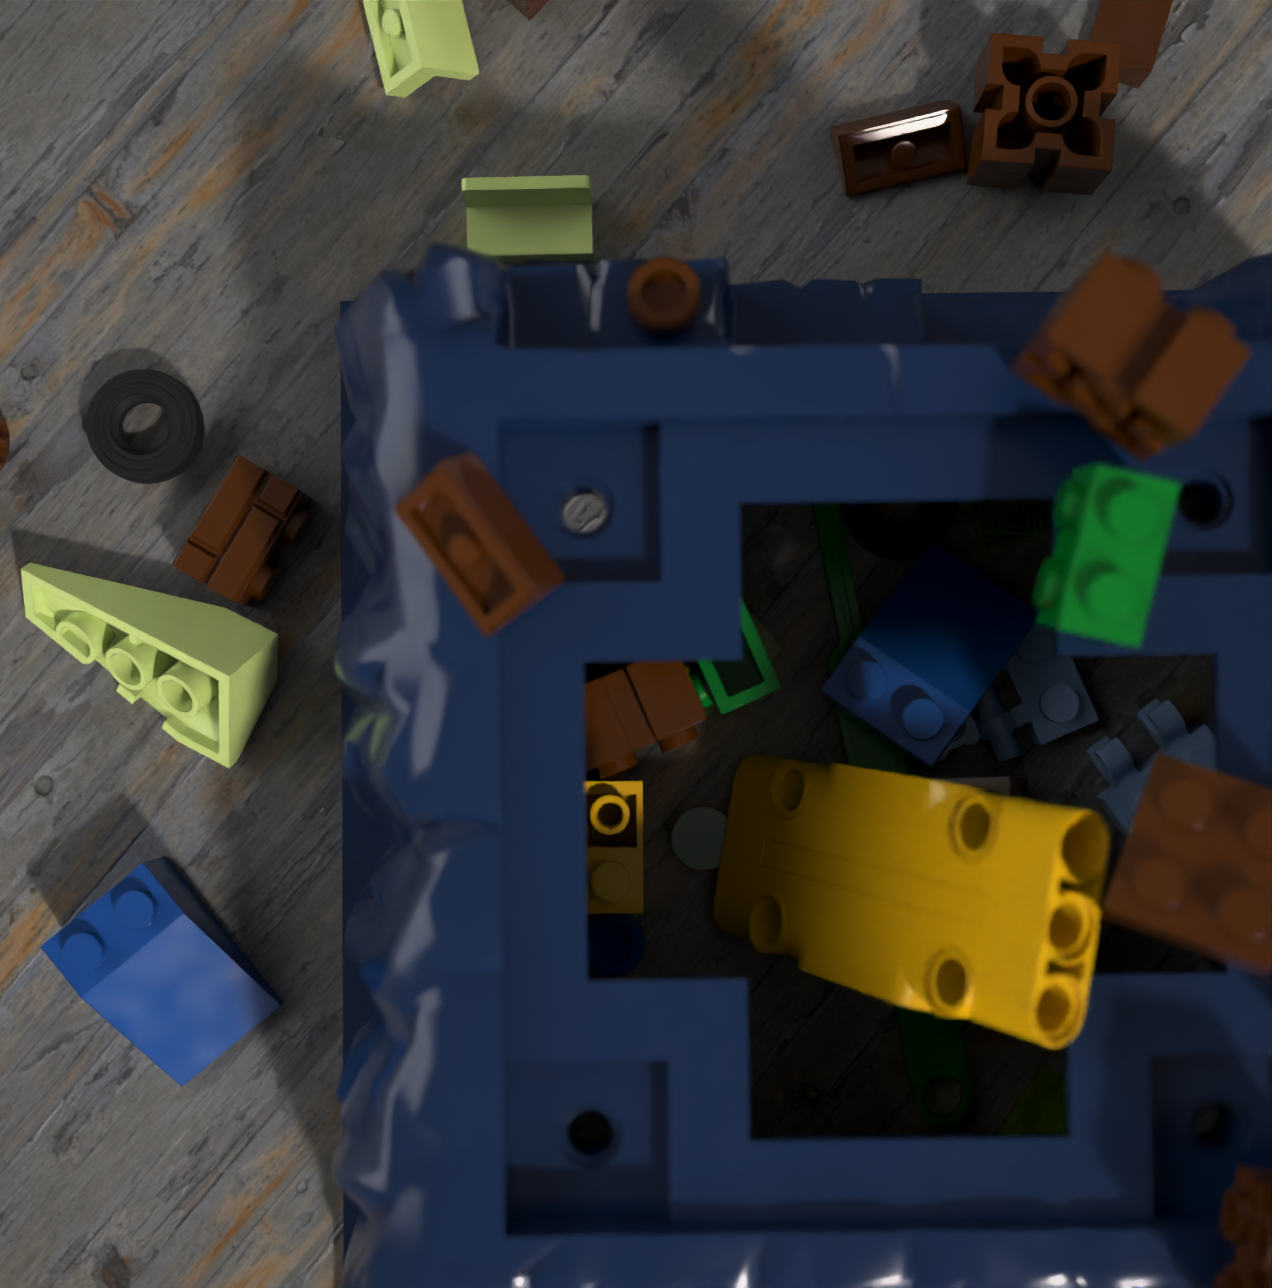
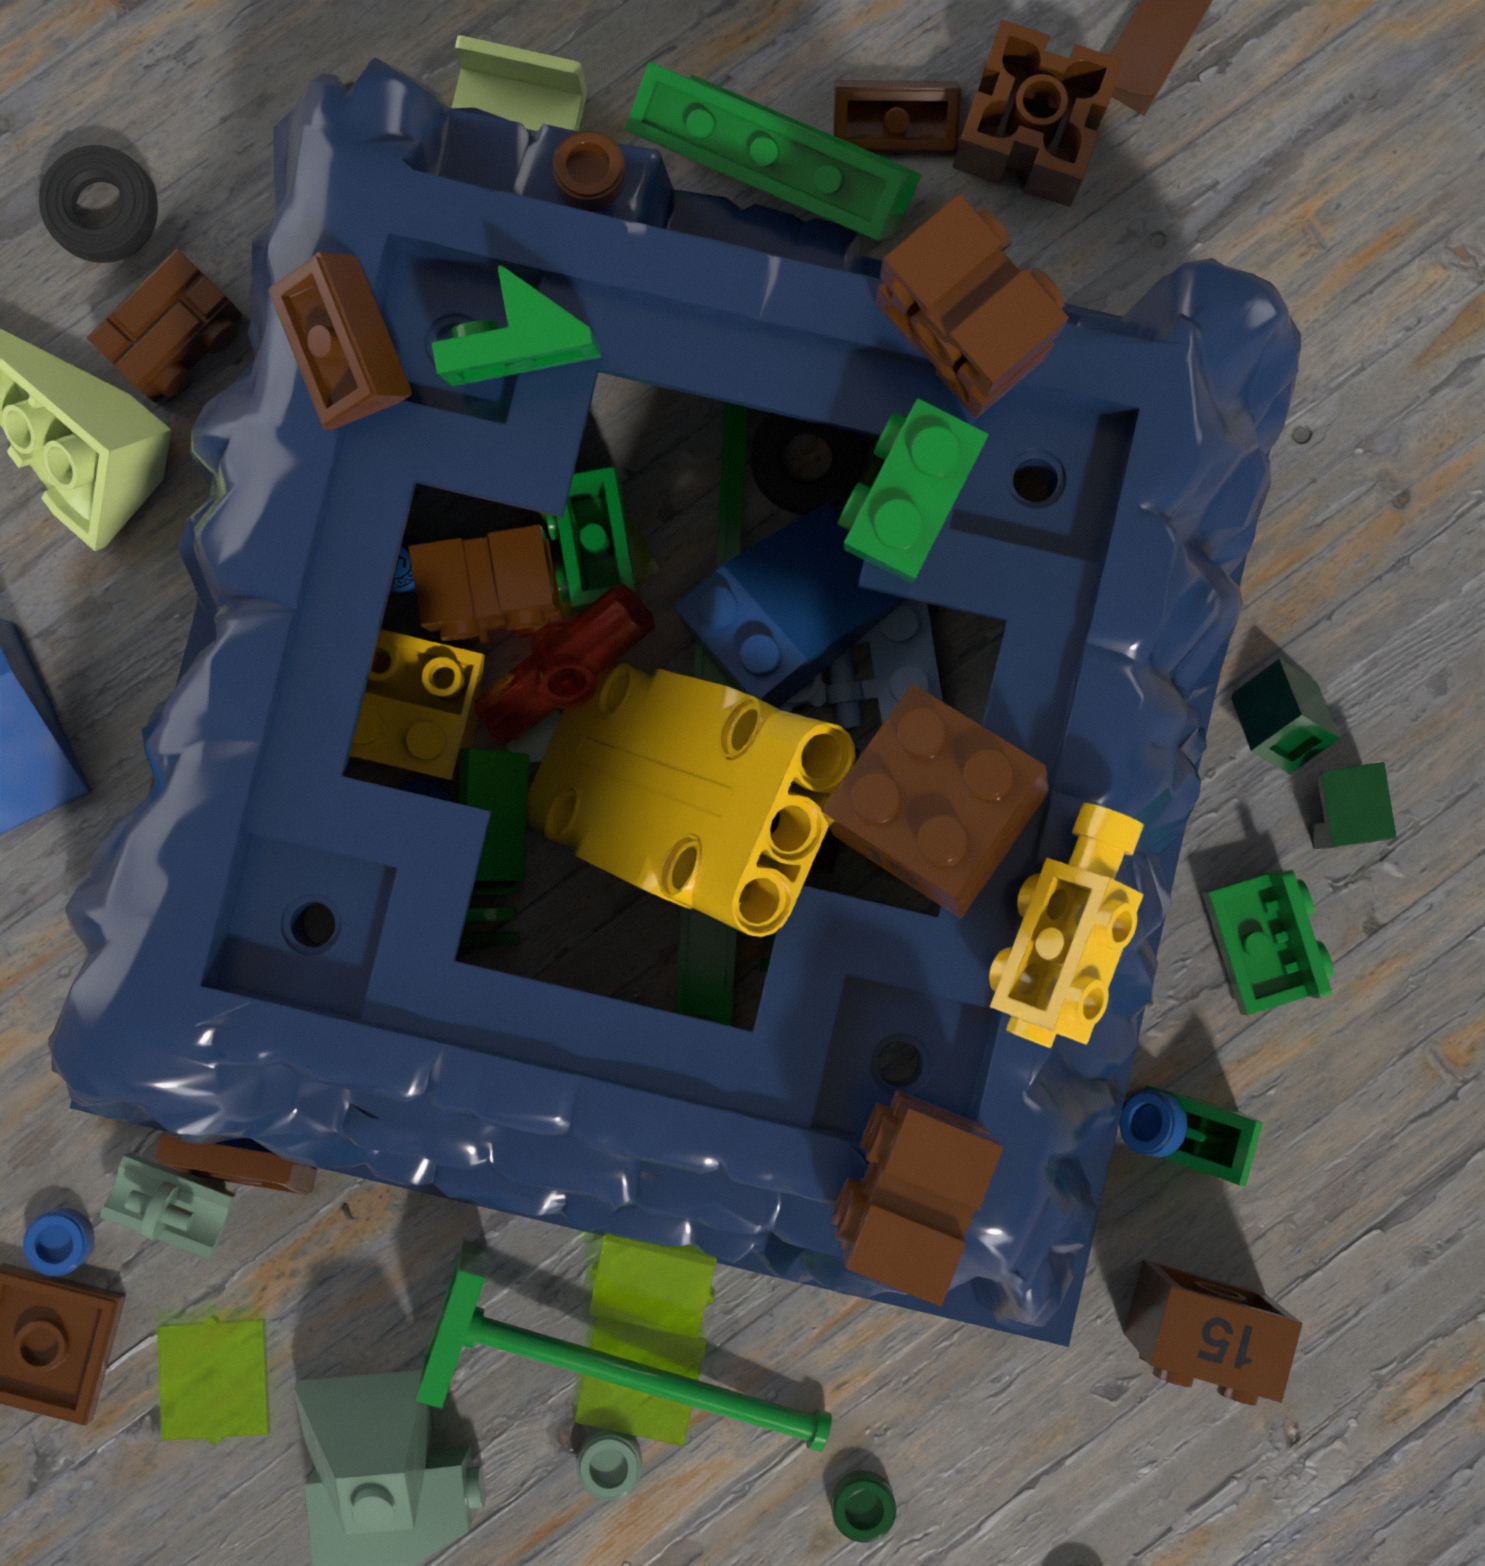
camera: 10 degrees right, 0 degrees up
(684, 488) = (536, 339): none -> green slope
(687, 922) = (500, 785): none -> green panel
(727, 772) = (564, 663): none -> clear red piece
(821, 223) = (772, 152): none -> green panel

